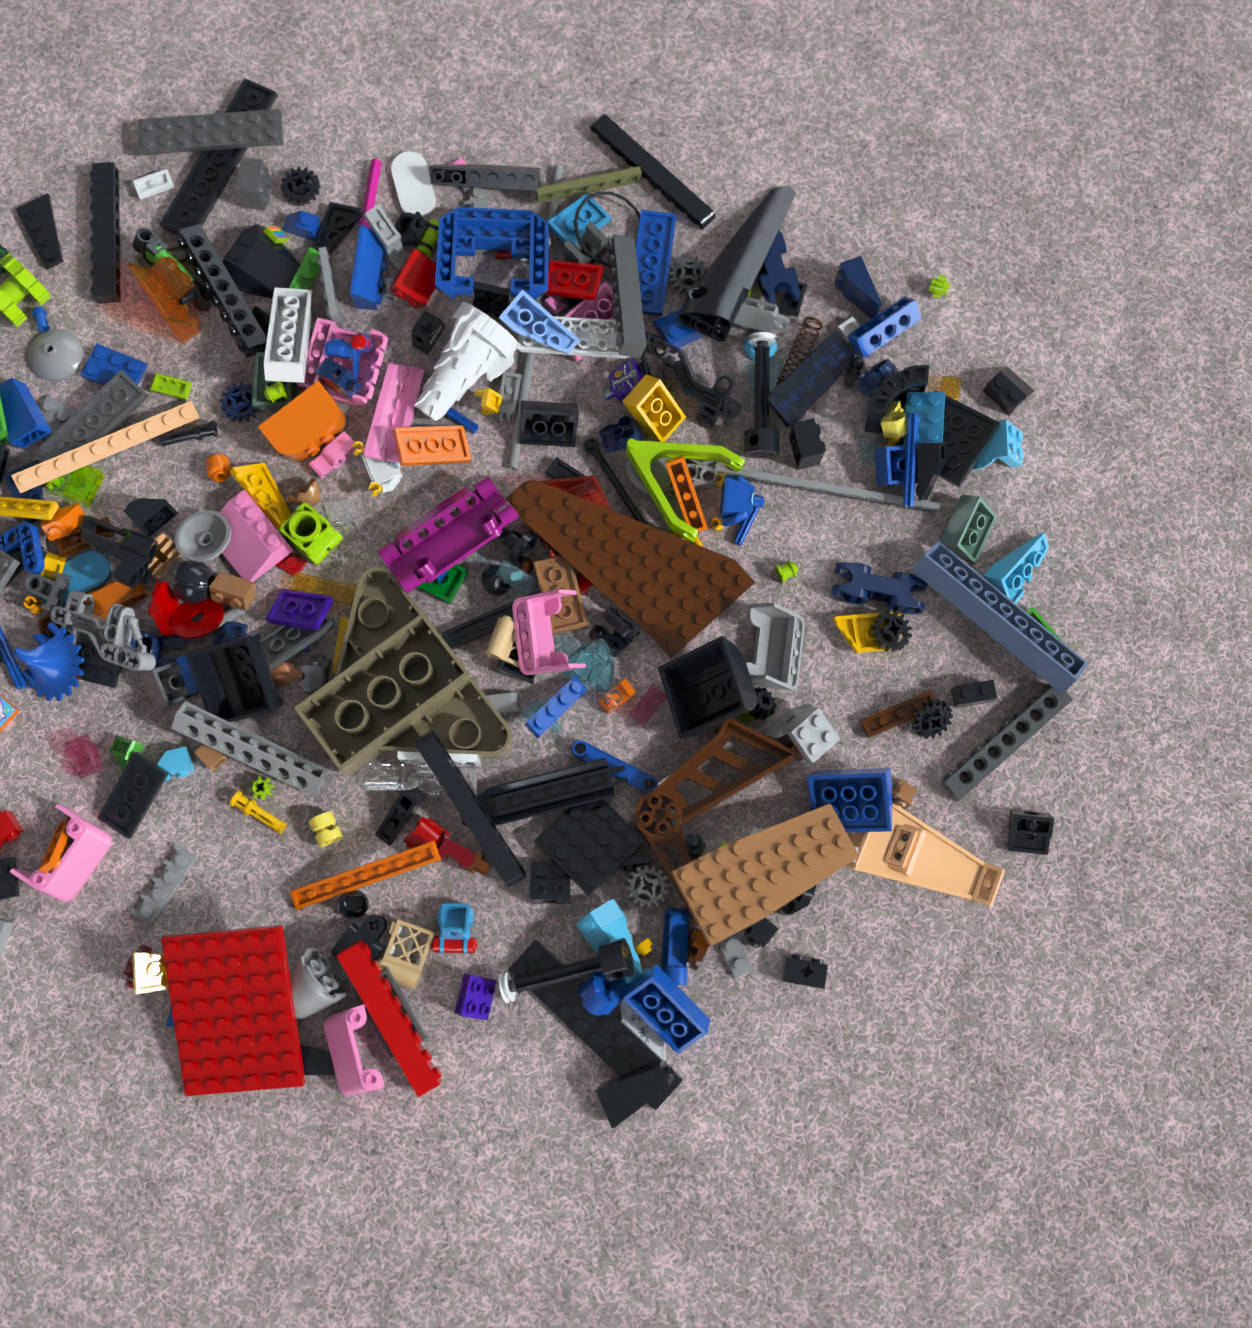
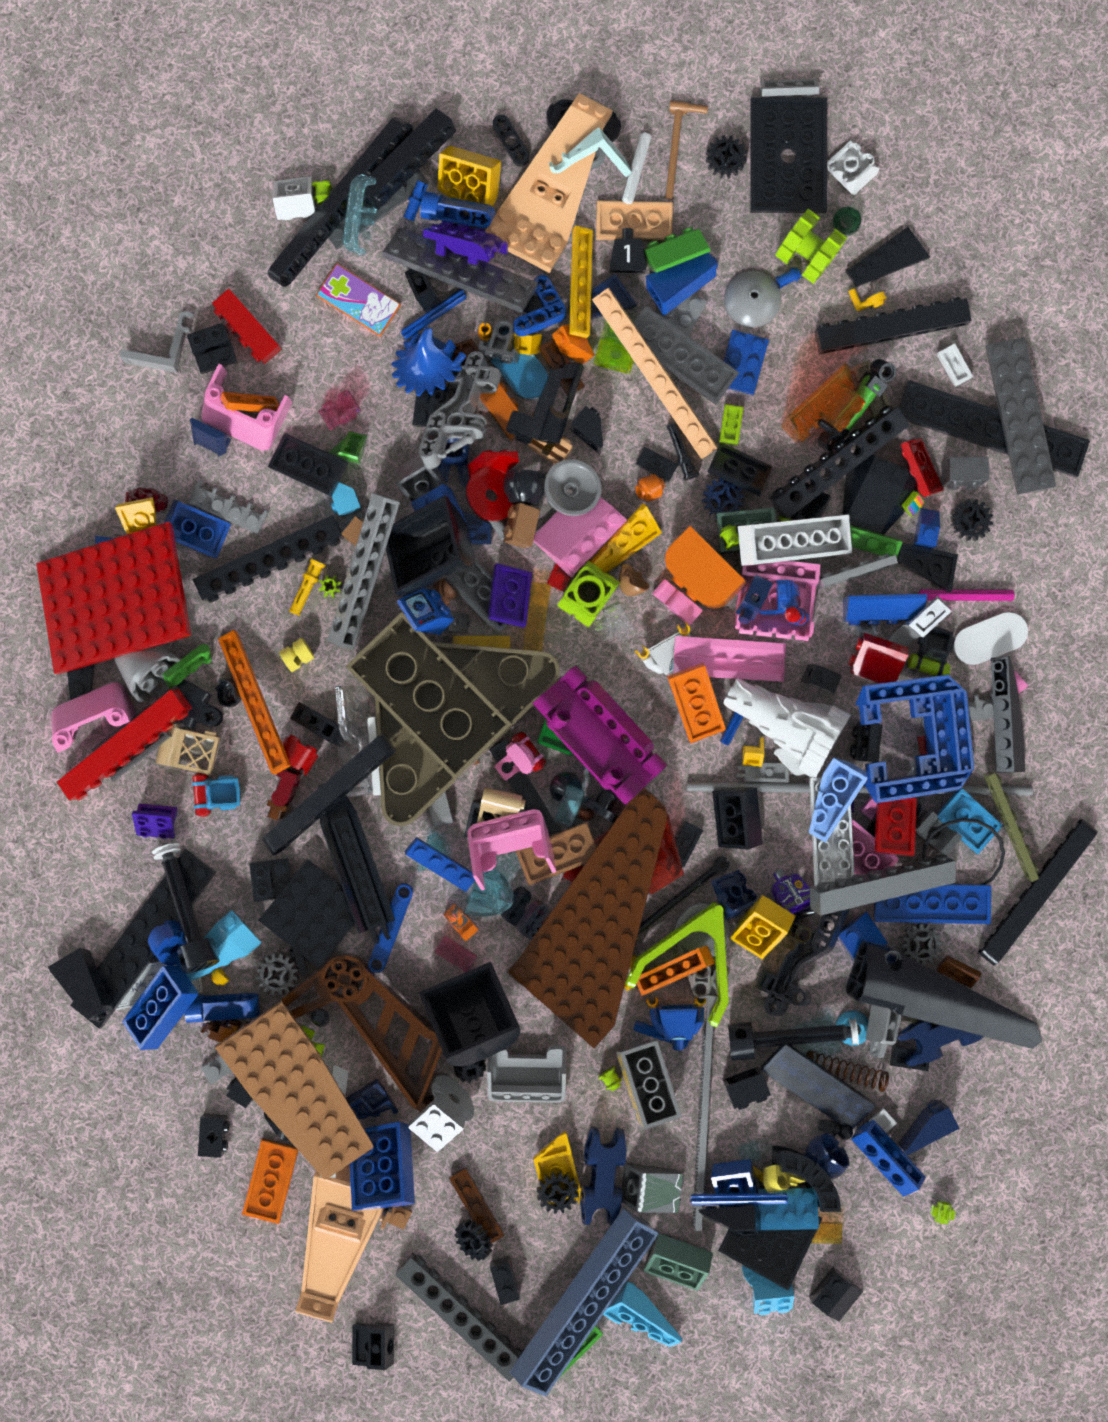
camera: 85 degrees right, 10 degrees up
(78, 245) = (876, 300): none -> yellow plate
(84, 893) = (209, 437): none -> dark blue slope
(179, 915) = (197, 529): none -> blue slope
(196, 460) = (656, 464): none -> black plate
(199, 783) = (205, 582): none -> black brick
(215, 382) = (739, 469): none -> black plate
(242, 221) = (921, 467): none -> red plate
(298, 685) = (426, 611): none -> blue slope
(317, 942) = (187, 665): none -> bright green plate
(460, 616) = (523, 755): none -> bright pink piece
(716, 245) = (959, 971): none -> reddish brown plate
(790, 806) = (367, 1105): none -> dark blue slope
(793, 531) = (648, 1084): none -> light grey brick
(857, 919) = (270, 1181): none -> orange tile
(895, 544) = (651, 1188): none -> slope

